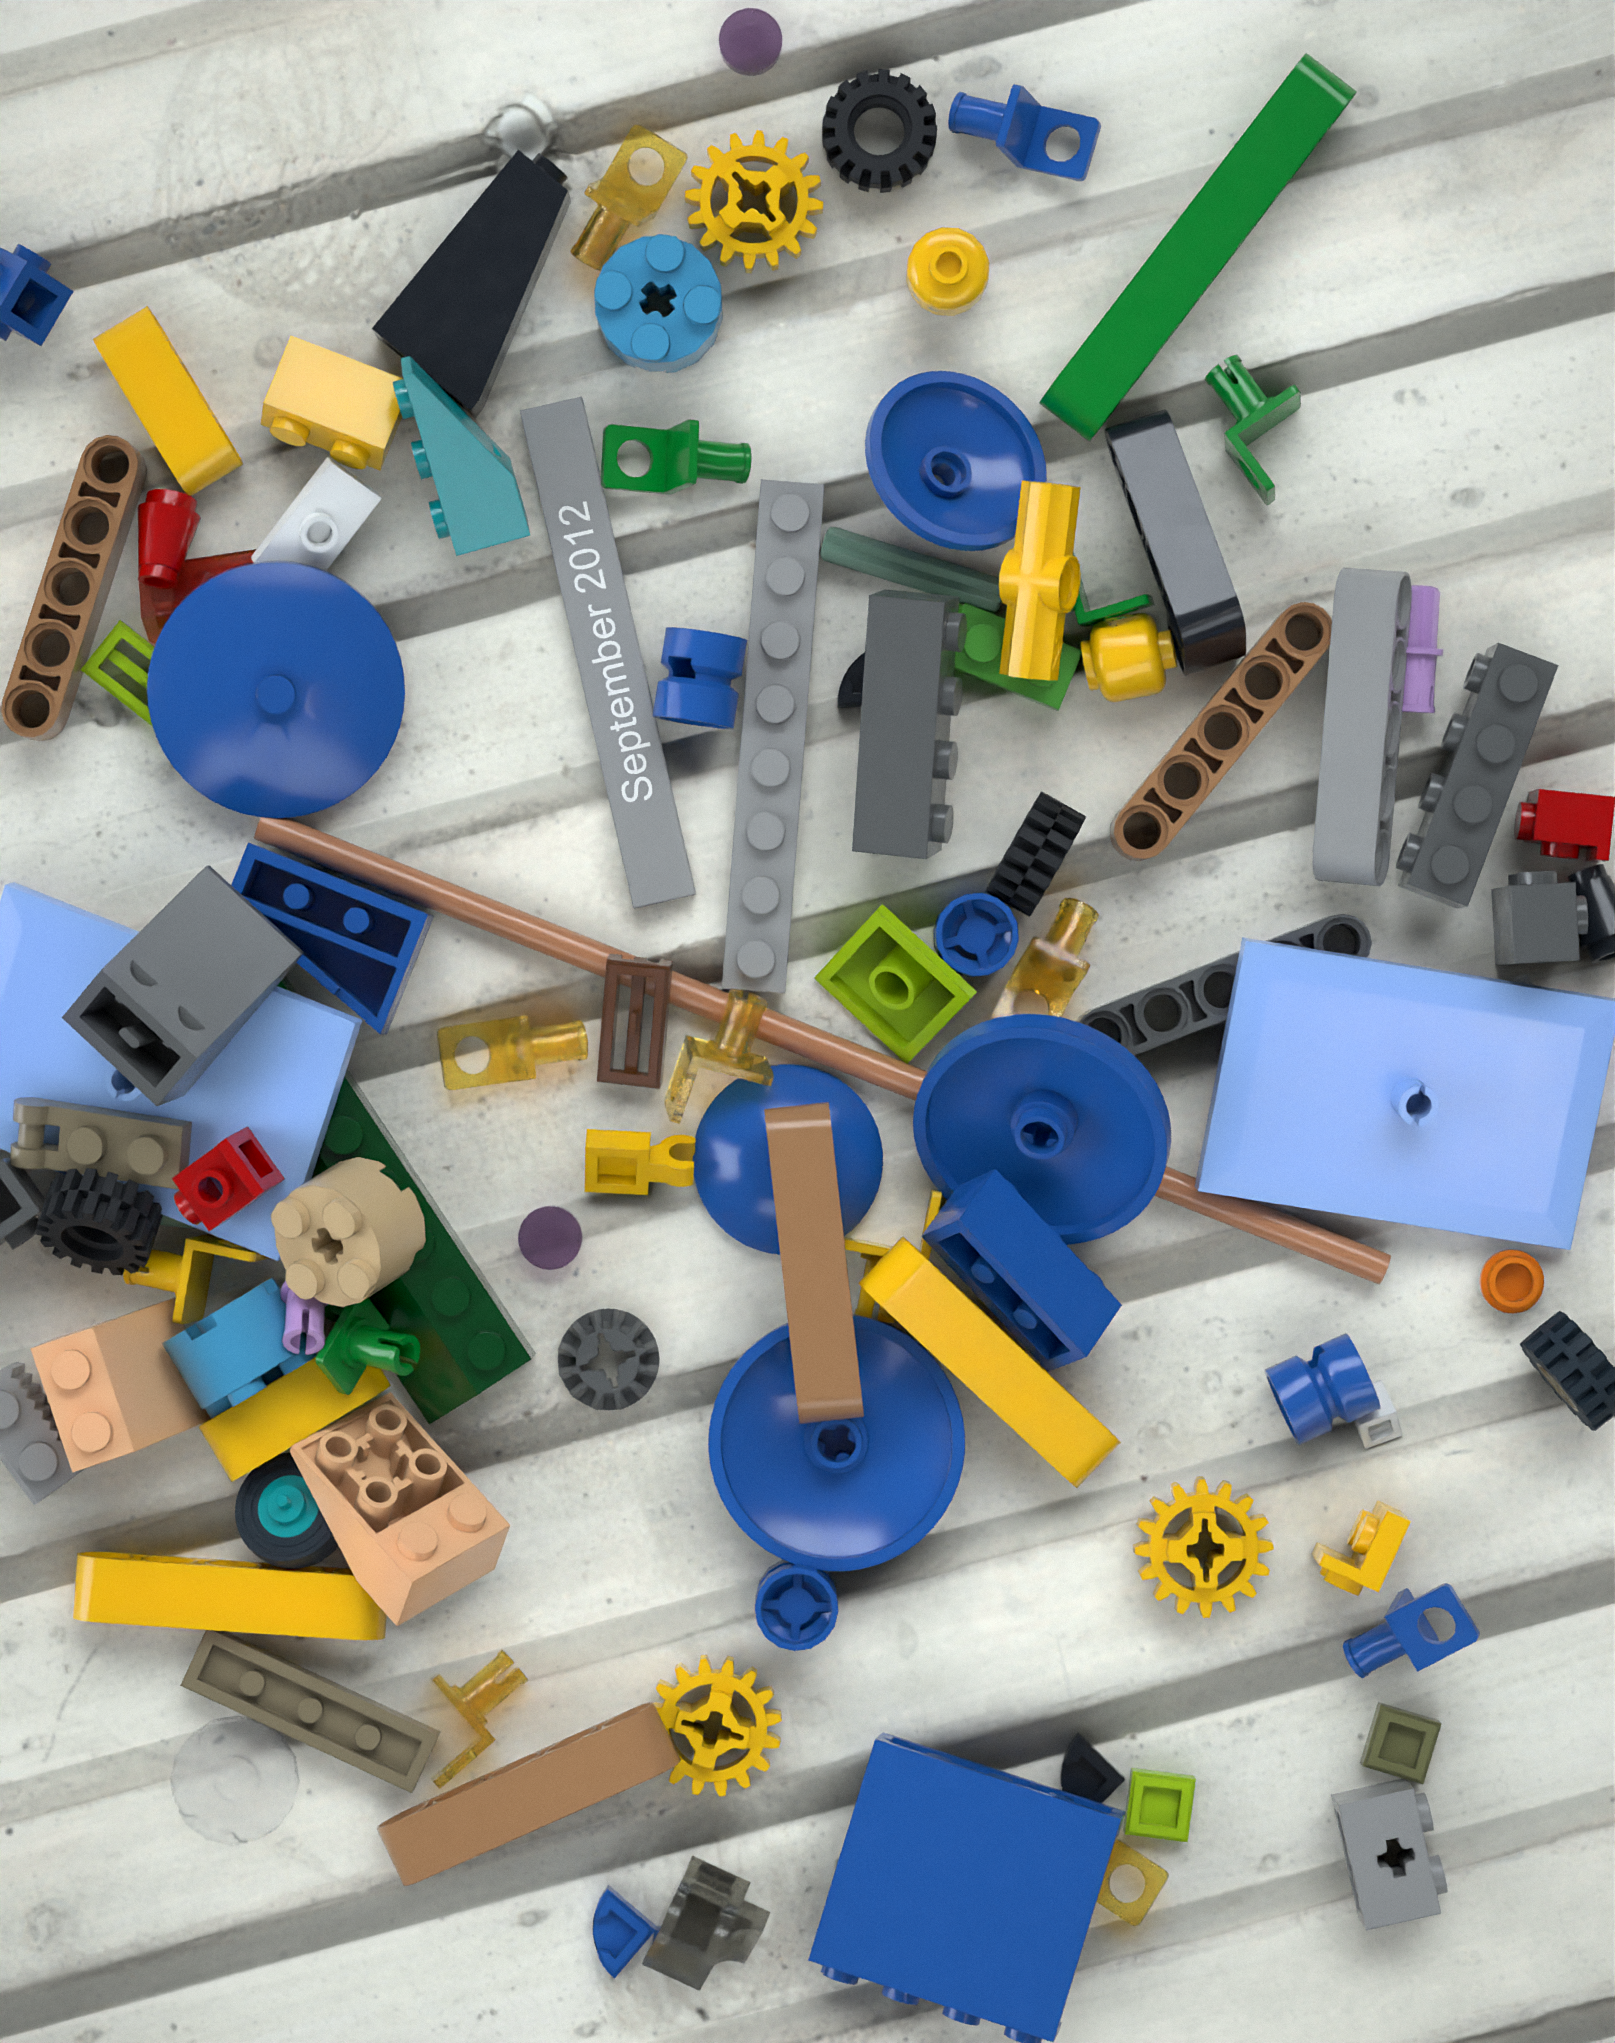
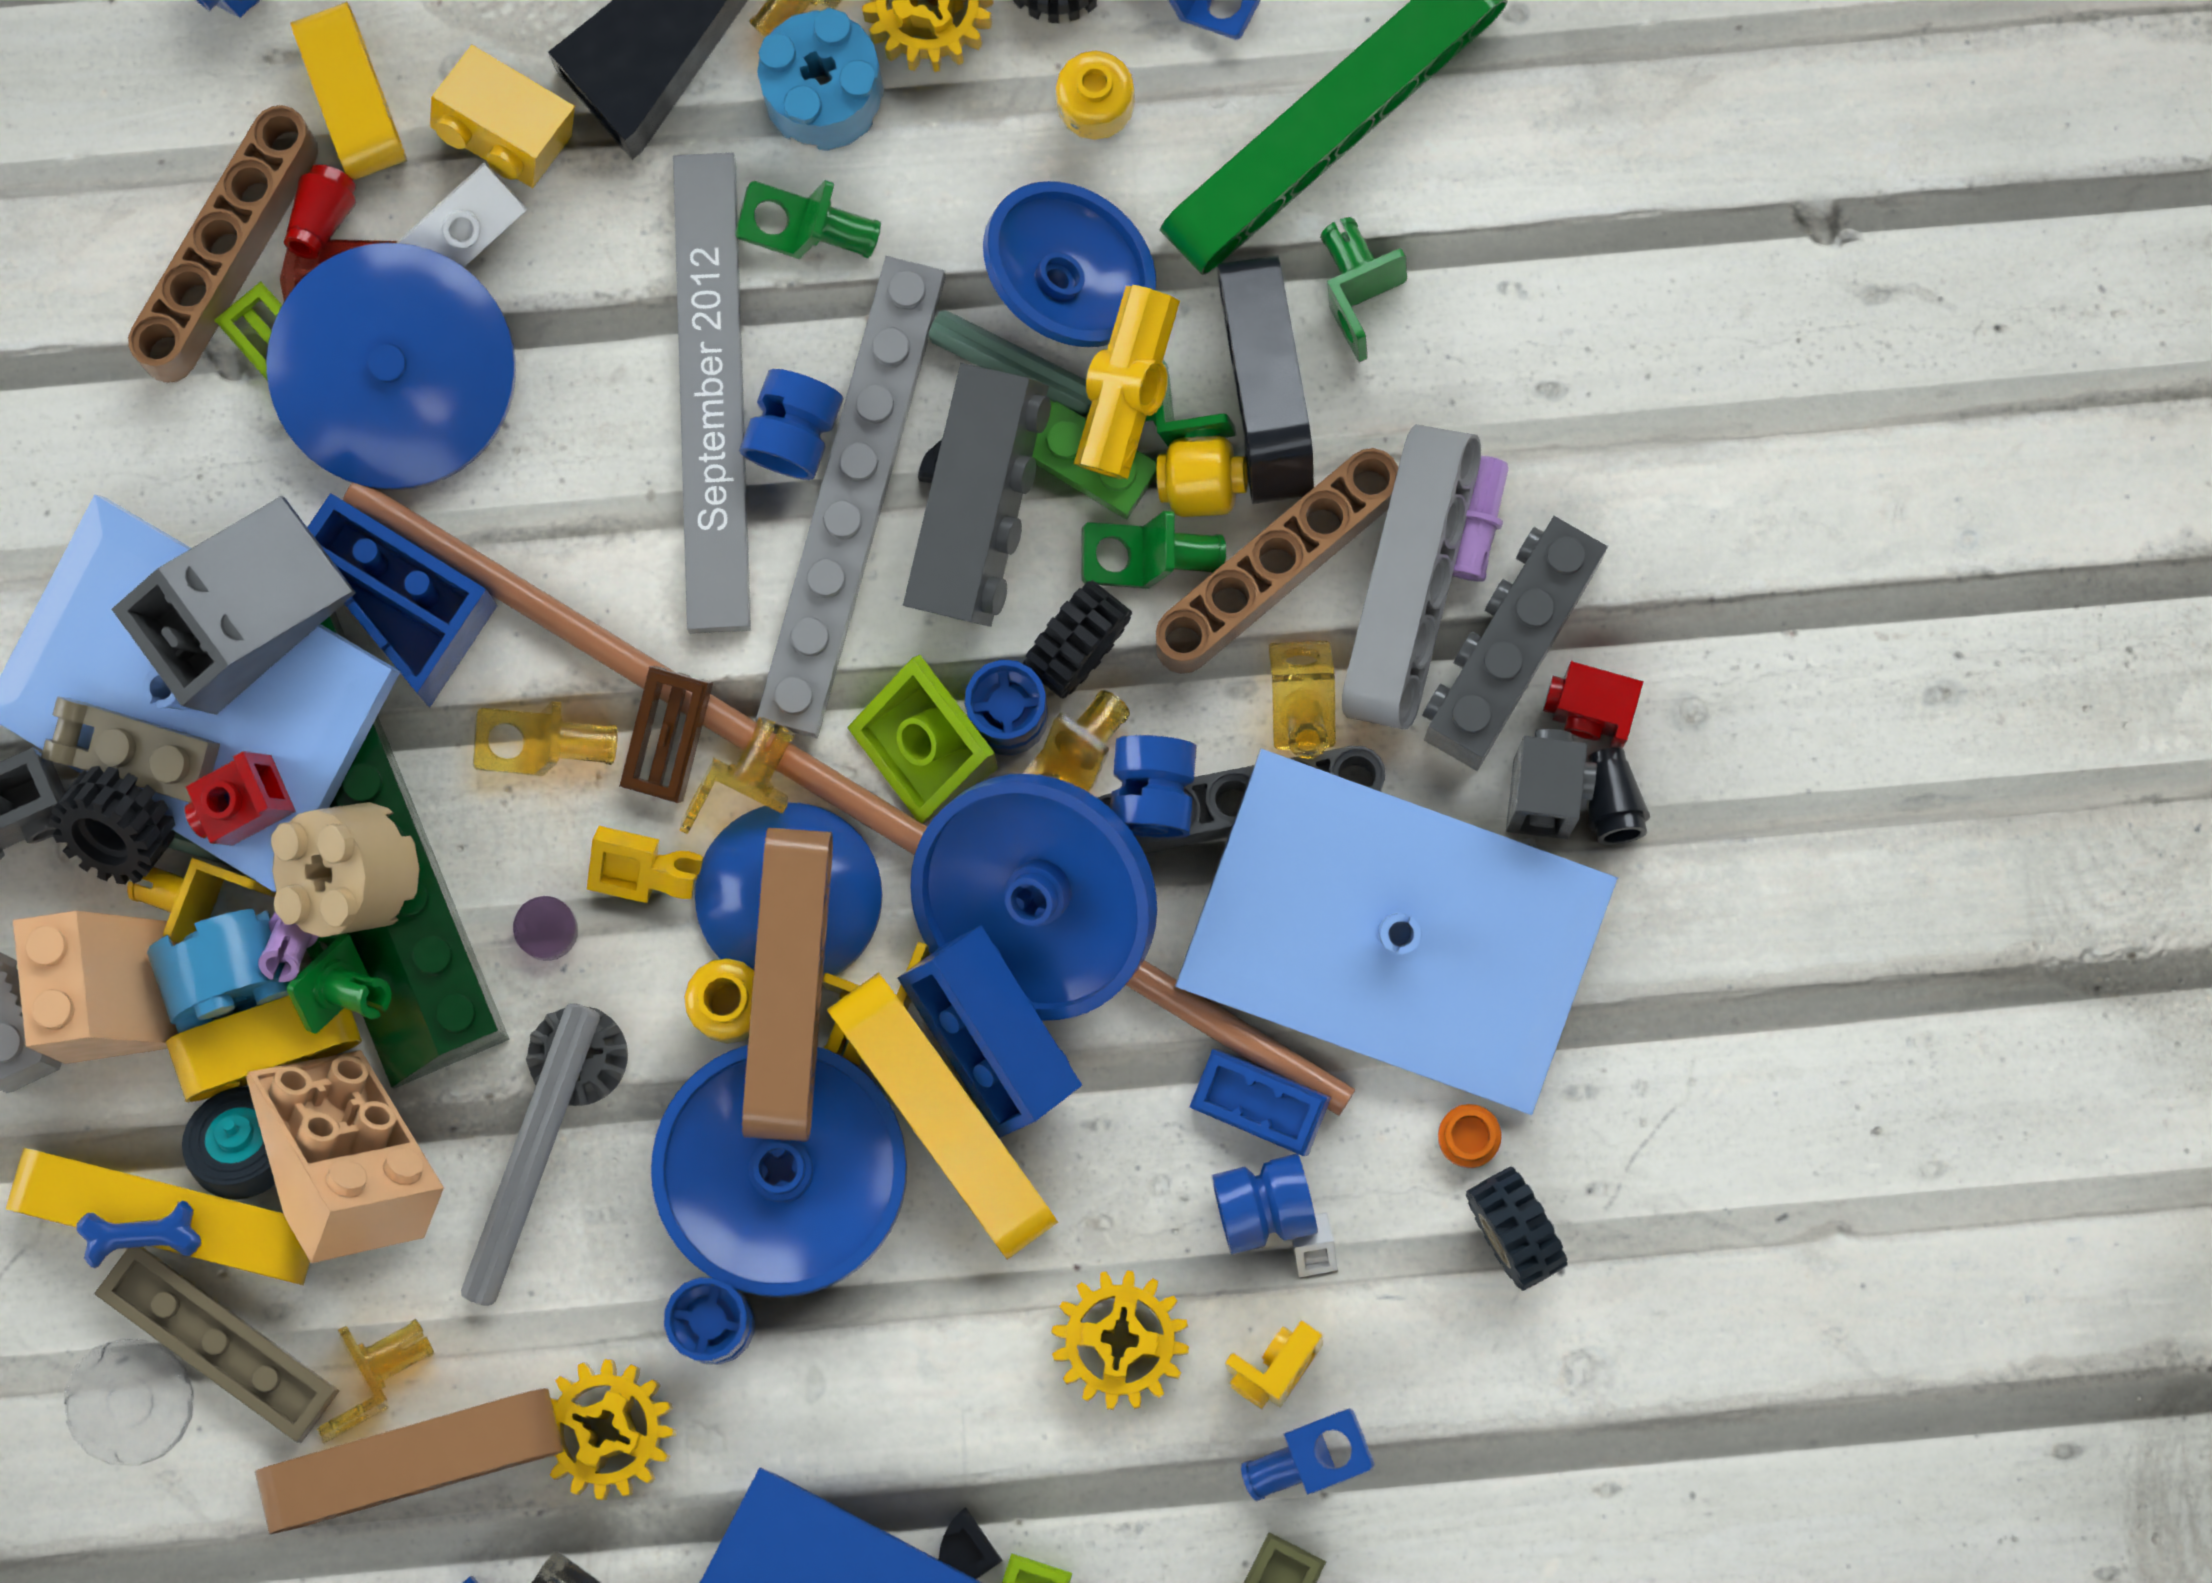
camera: 15 degrees right, 10 degrees down
(246, 1615) = (107, 1237): none -> blue piece
(471, 473) = (613, 201): teal slope -> none
(585, 1469) = (530, 1154): none -> light grey axle
(749, 1284) = (721, 1000): none -> yellow head
(1092, 745) = (1151, 550): none -> green bracket
(1144, 999) = (1153, 785): none -> blue wheel
(1272, 870) = (1303, 698): none -> clear yellow bracket
(1299, 1286) = (1260, 1102): none -> blue plate

